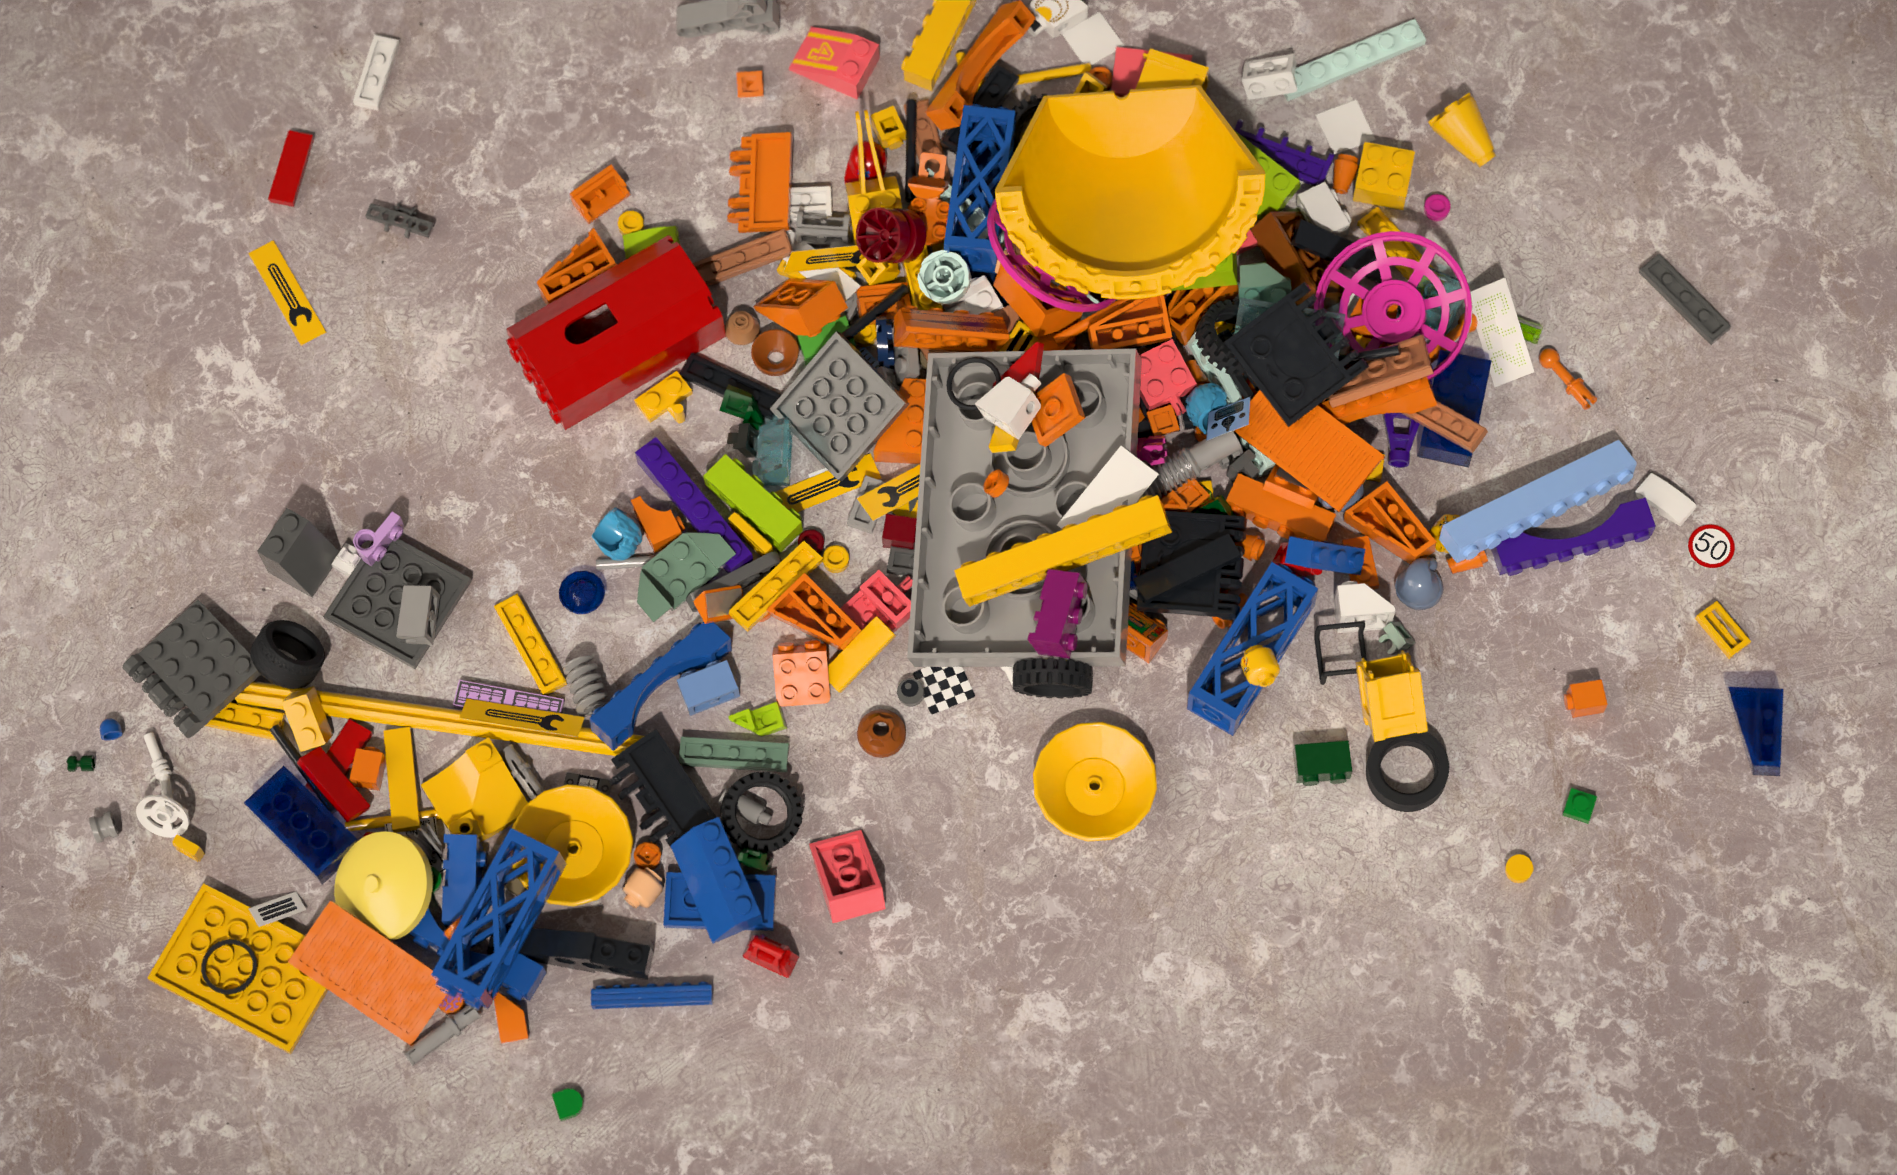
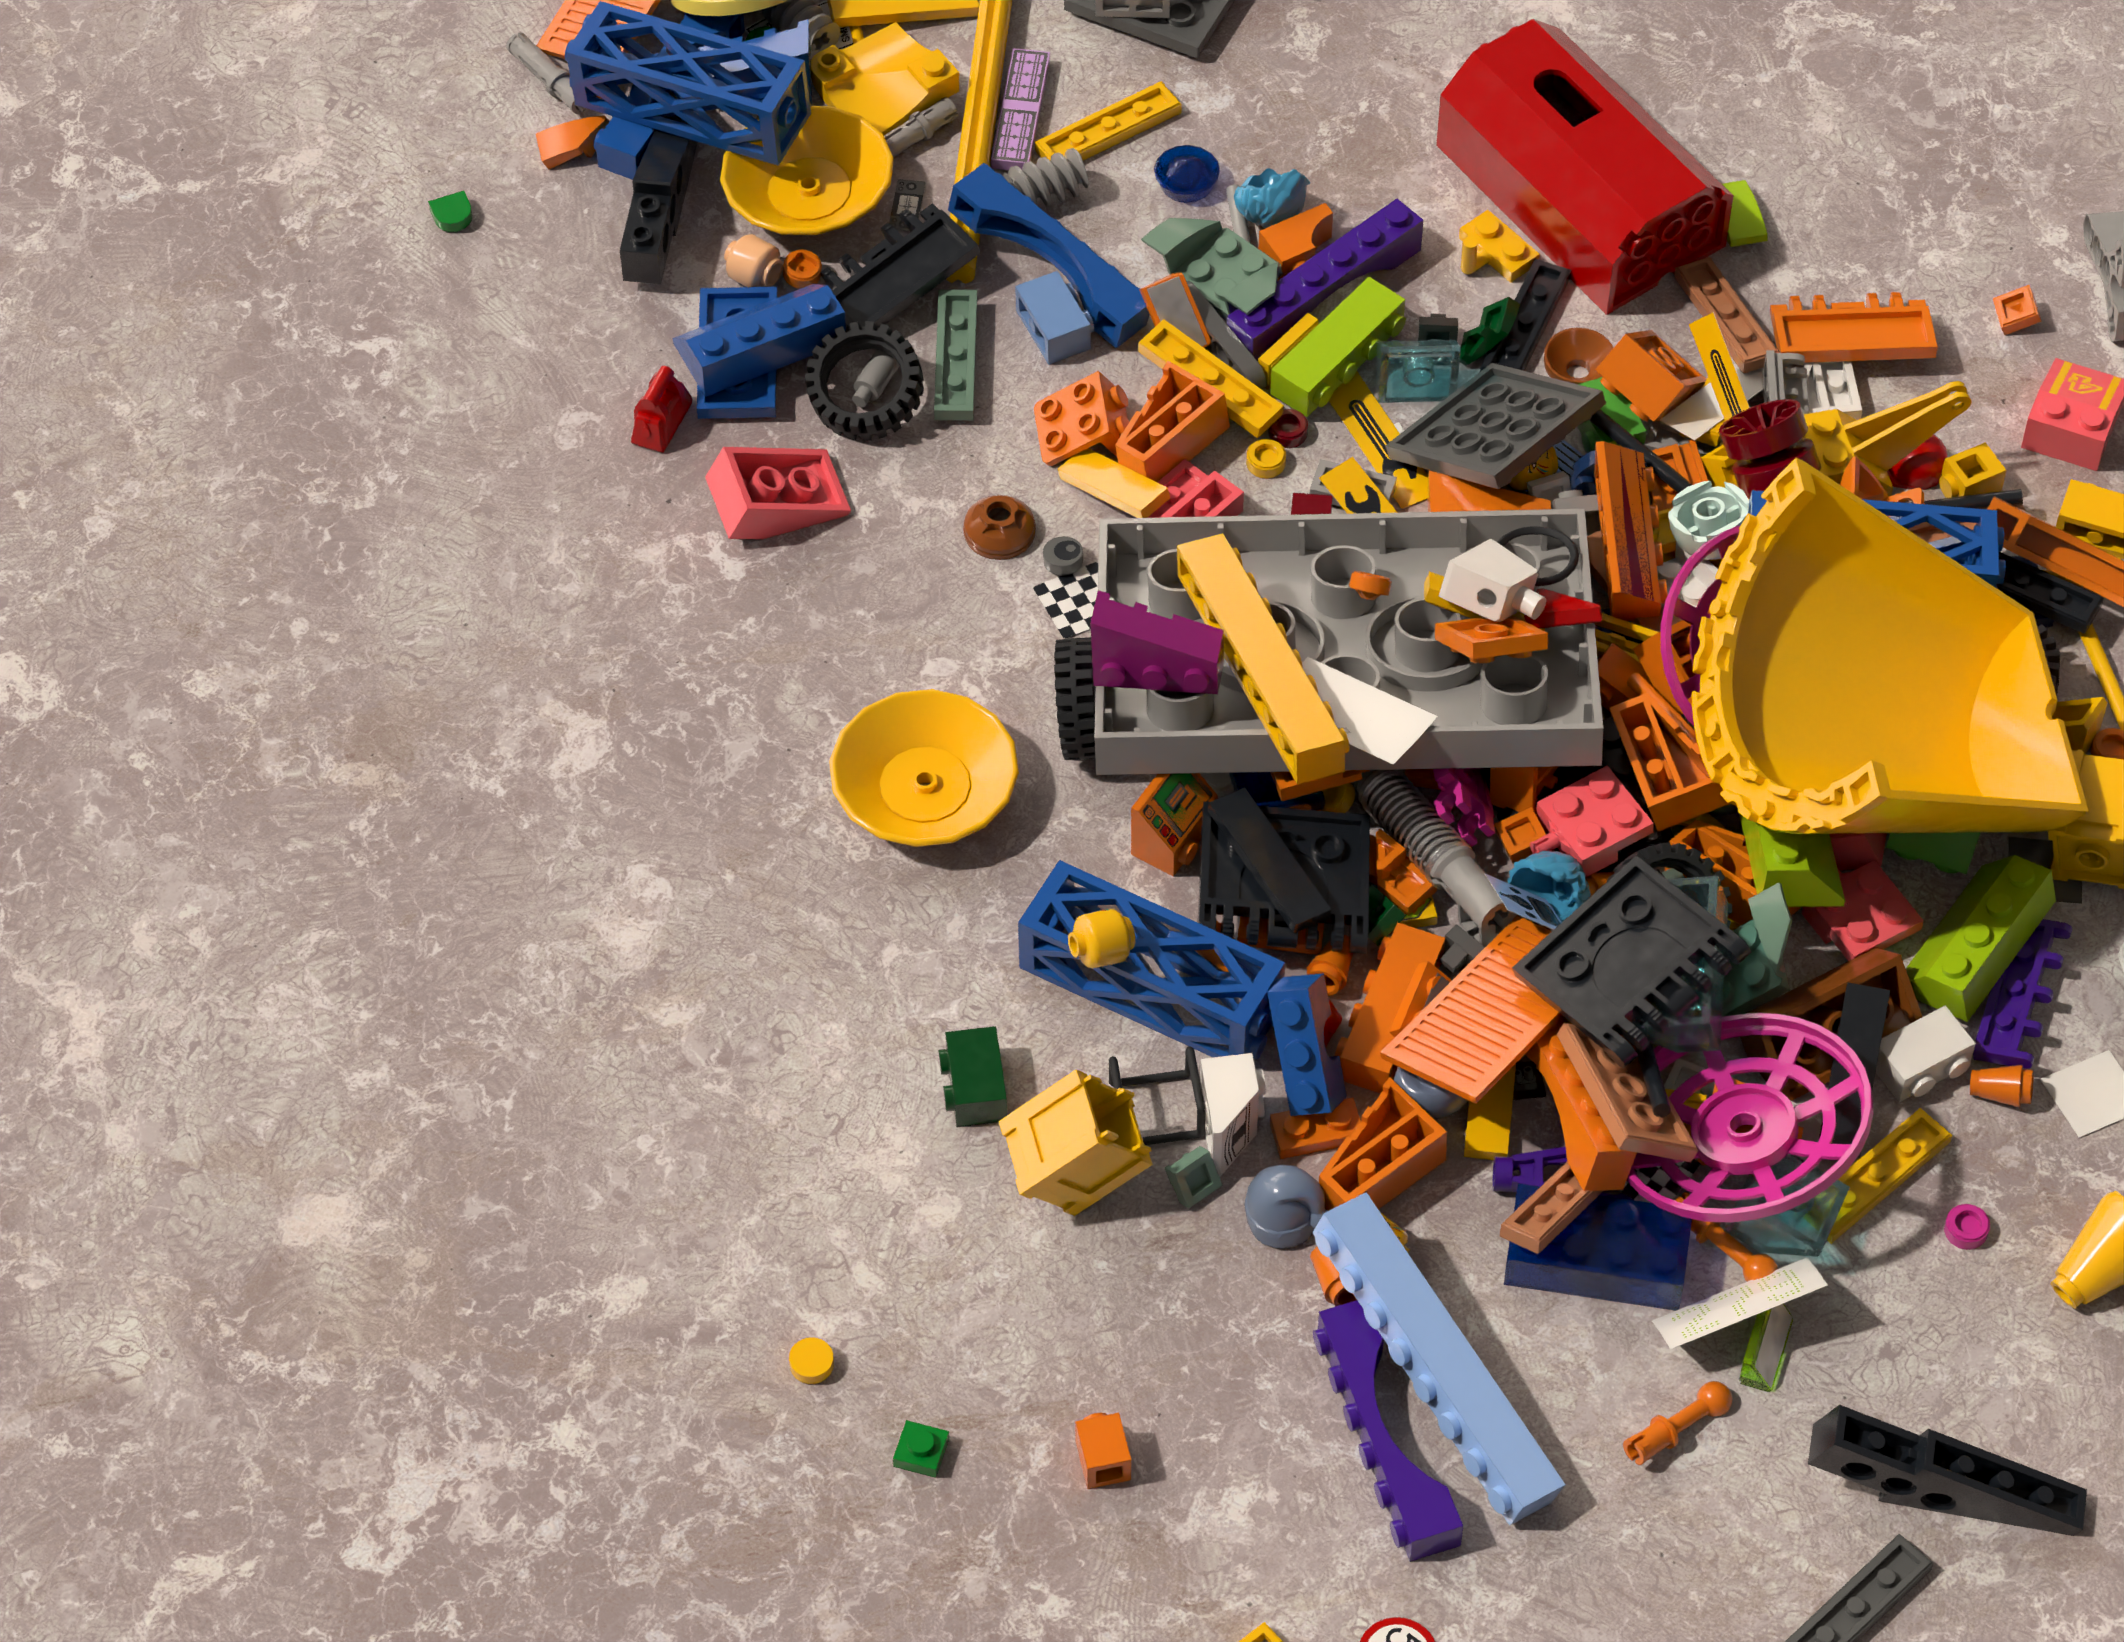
camera: 85 degrees right, 15 degrees down
(522, 717) = (994, 110): yellow sticker -> none
(579, 267) = (1692, 128): orange wedge -> none
(599, 194) = (1806, 148): orange hinge -> none
(630, 222) = (1768, 191): yellow tile -> none
(652, 996) = (602, 289): blue piece -> none
(742, 328) = (1618, 319): medium nougat cone -> none
(755, 859) = (791, 375): dark green slope -> none
(761, 720) = (1010, 386): lime slope -> none
(1383, 176) = (2006, 1137): yellow brick -> none
(1408, 801) = (957, 1241): black tyre -> none
(1611, 237) = (1943, 1474): none -> black brick
(1666, 498) = (1471, 1574): white slope -> none

